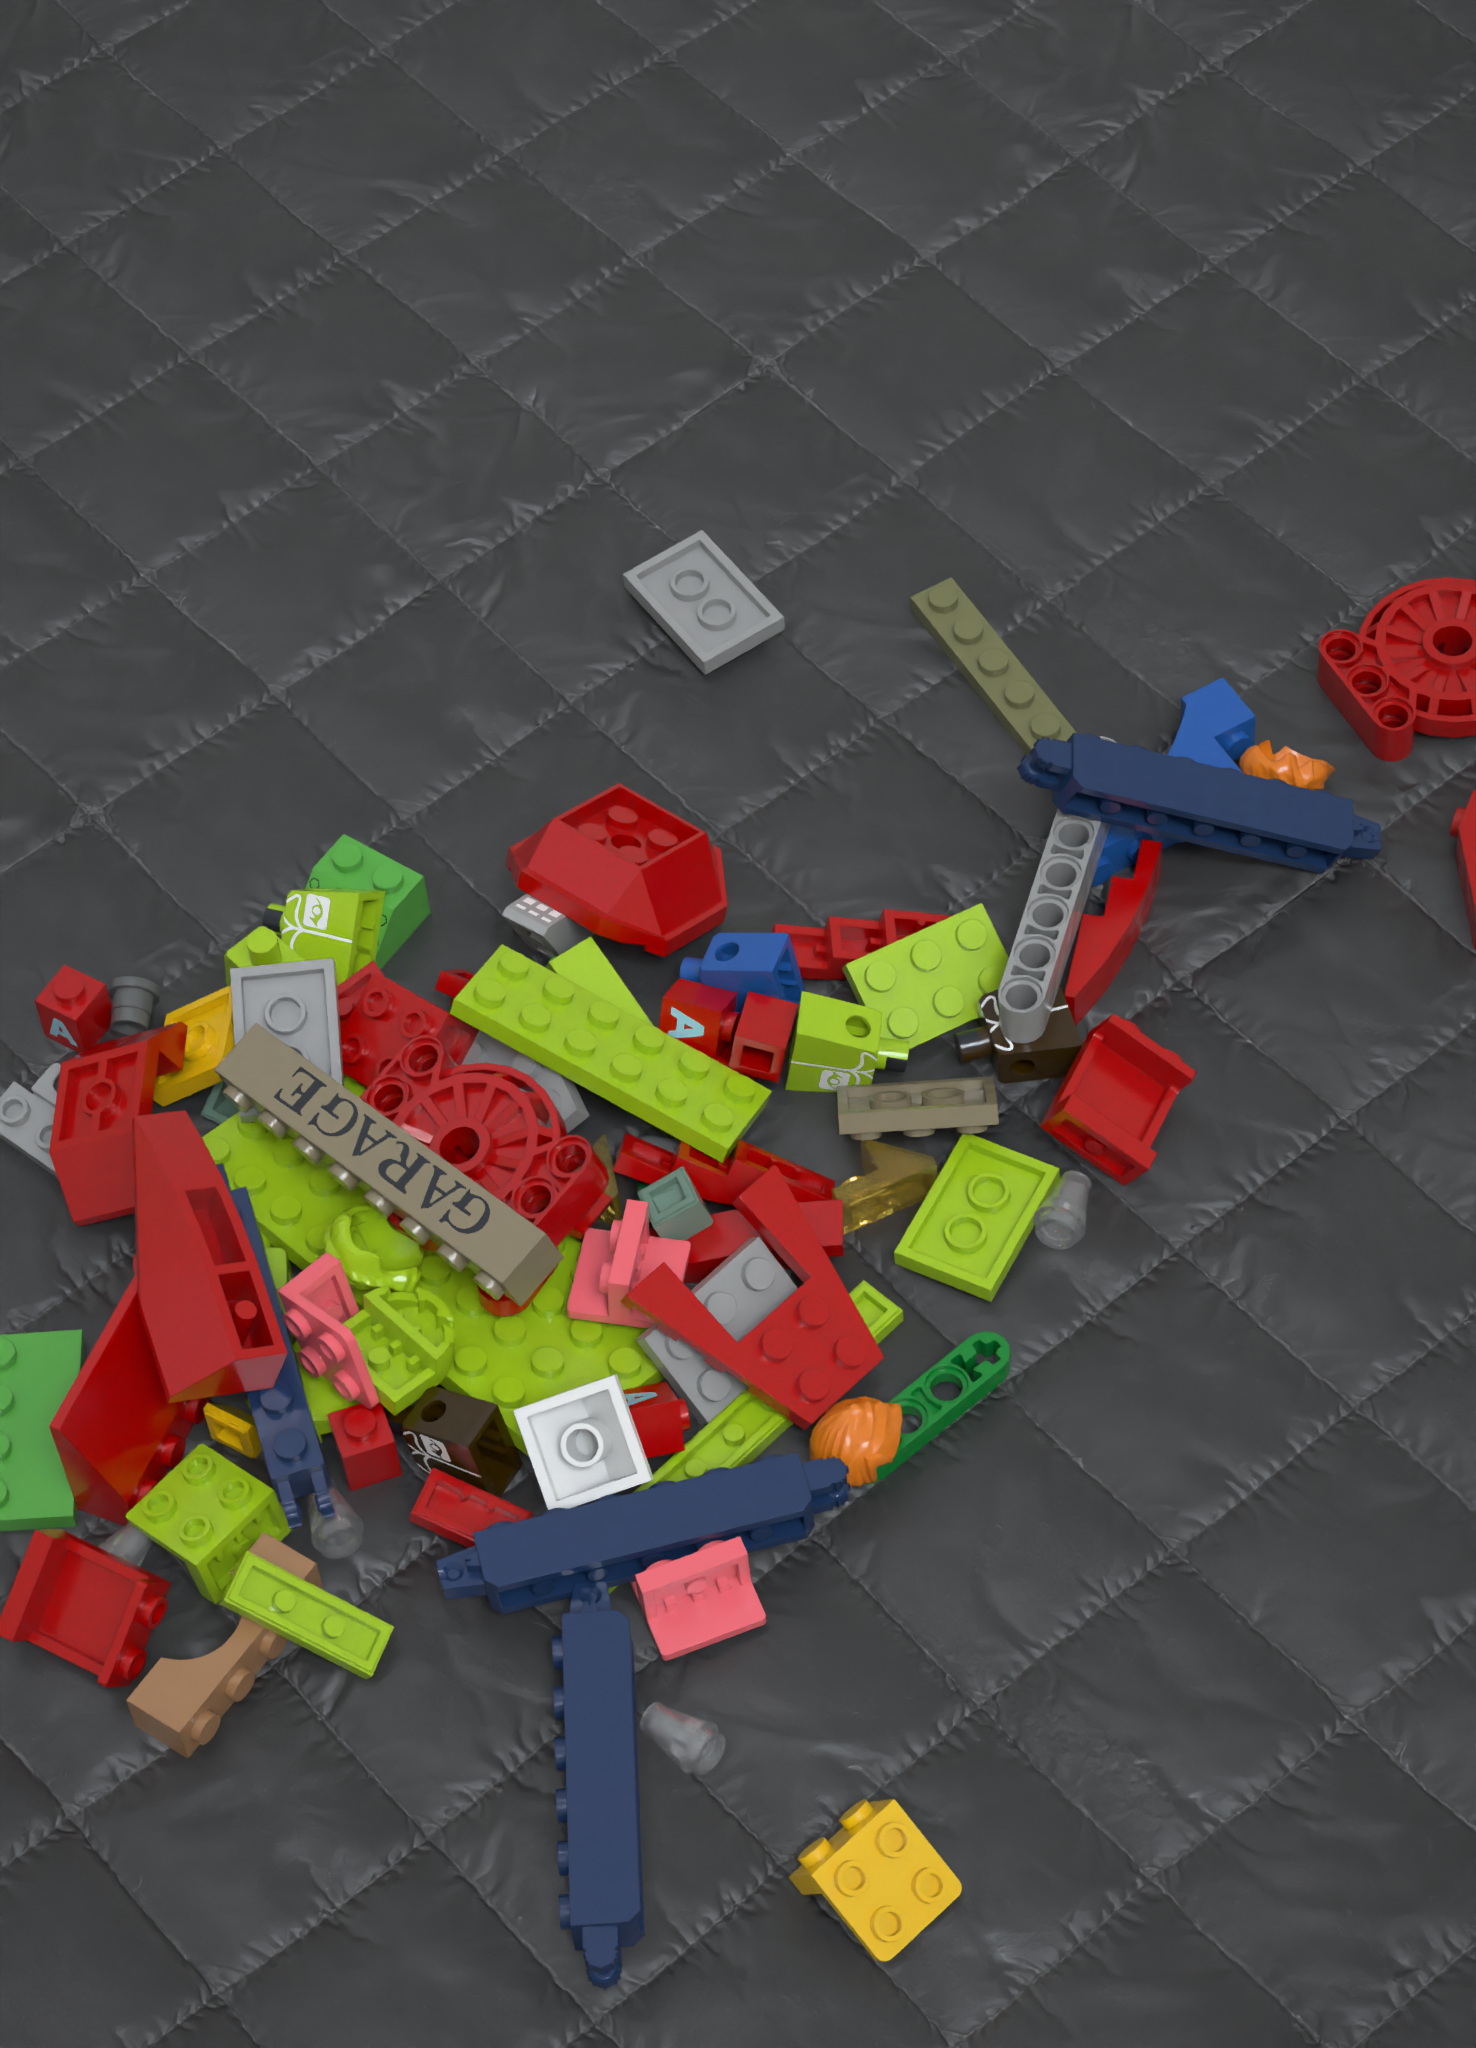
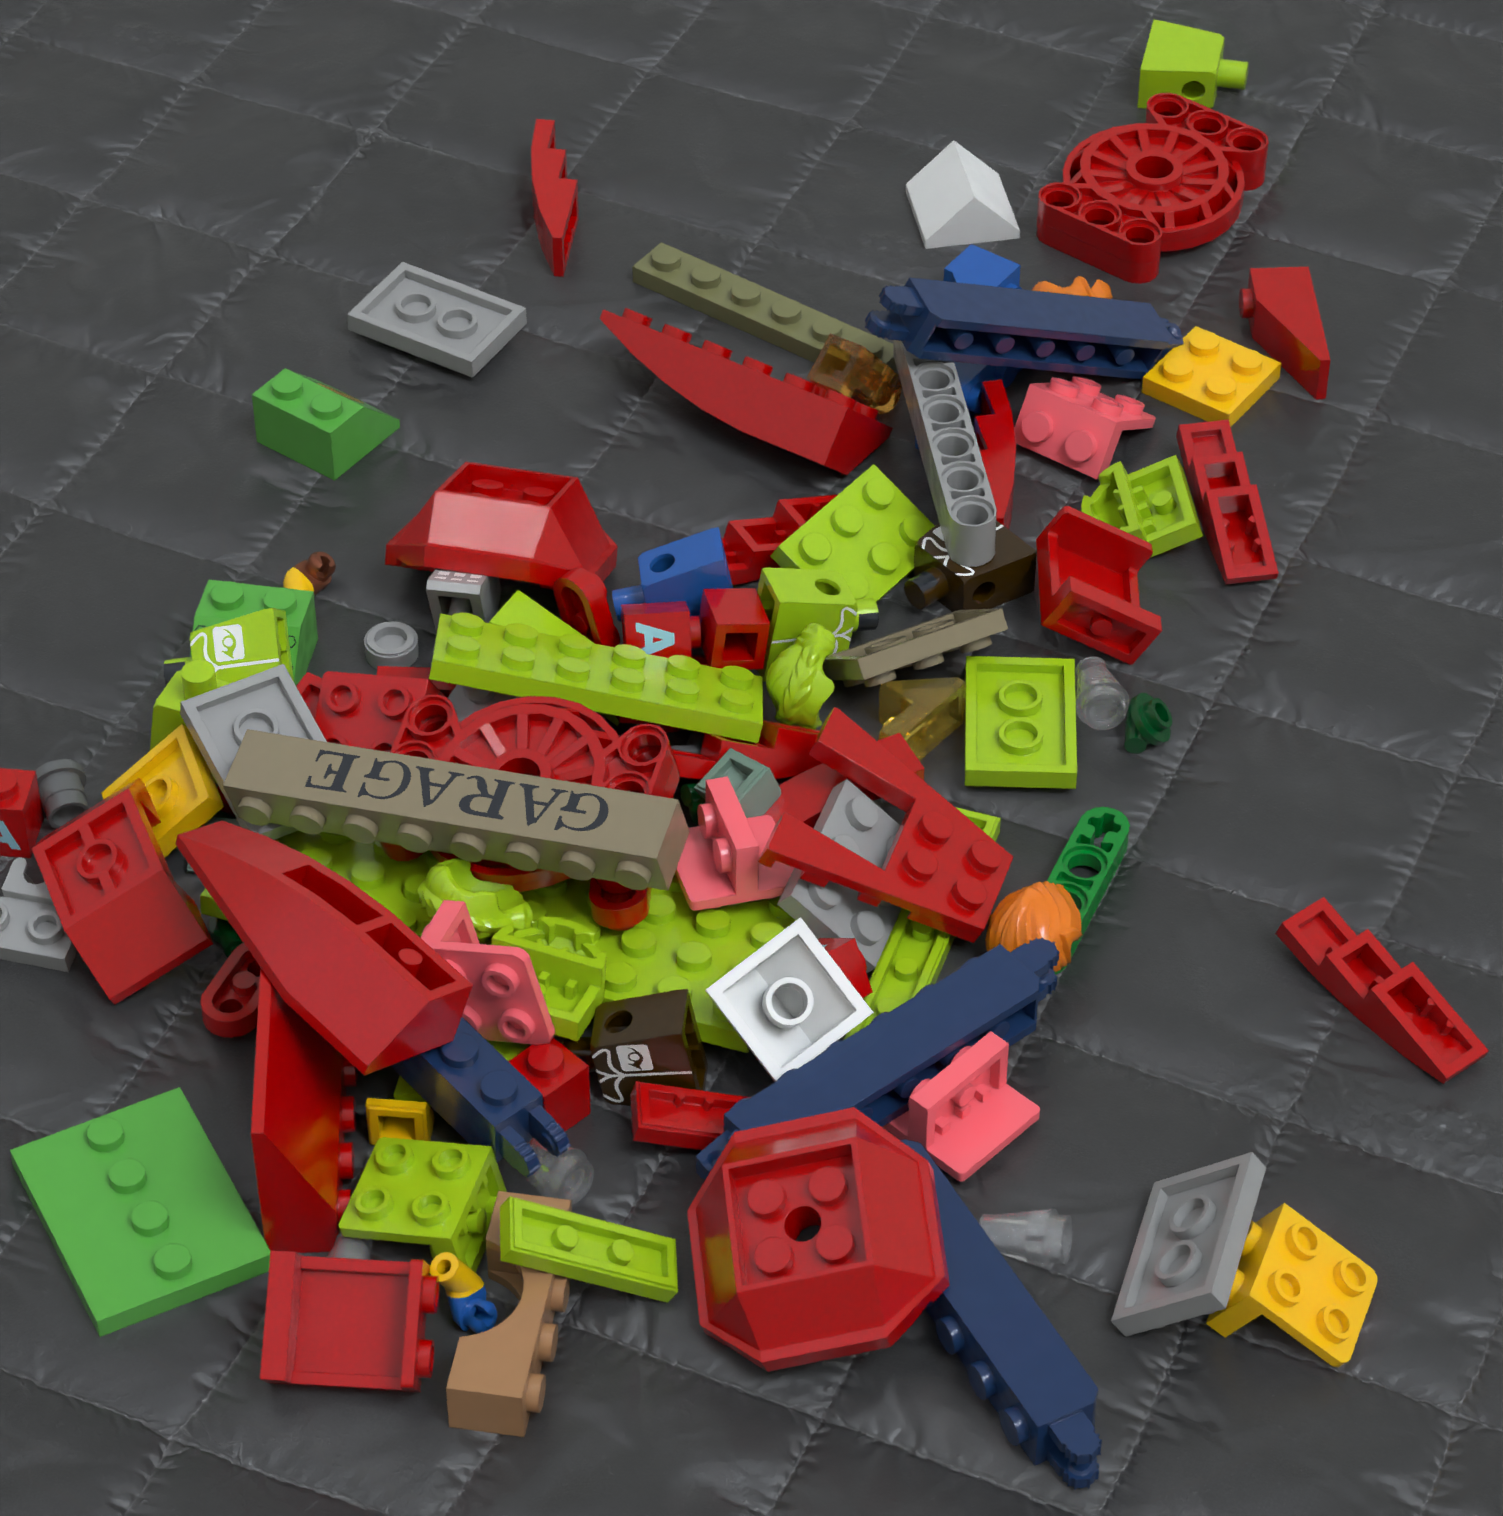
camera: 30 degrees left, 10 degrees down
(200, 1613) = (464, 1293): none -> arm
(444, 851) = (311, 573): none -> copper arm
(480, 940) = (391, 645): none -> light grey tile
(521, 1709) = (850, 1283): none -> red piece
(544, 682) = (317, 423): none -> bright green slope
(643, 963) = (585, 607): none -> red plate
(795, 1109) = (798, 679): none -> lime hair
(802, 1803) = (1189, 1245): none -> light grey plate
(876, 496) = (553, 197): none -> red slope
(931, 786) = (783, 413): none -> red wedge
(1010, 793) = (856, 374): none -> clear orange leg
(1092, 1256) = (1146, 722): none -> dark green plate
(1133, 1613) = (1386, 998): none -> red slope
(1218, 902) = (1077, 423): none -> coral bracket
(1223, 1023) = (1147, 504): none -> lime slope
(1262, 615) = (960, 201): none -> white slope
(1307, 1042) = (1226, 502): none -> red slope
(1383, 894) = (1211, 377): none -> yellow plate

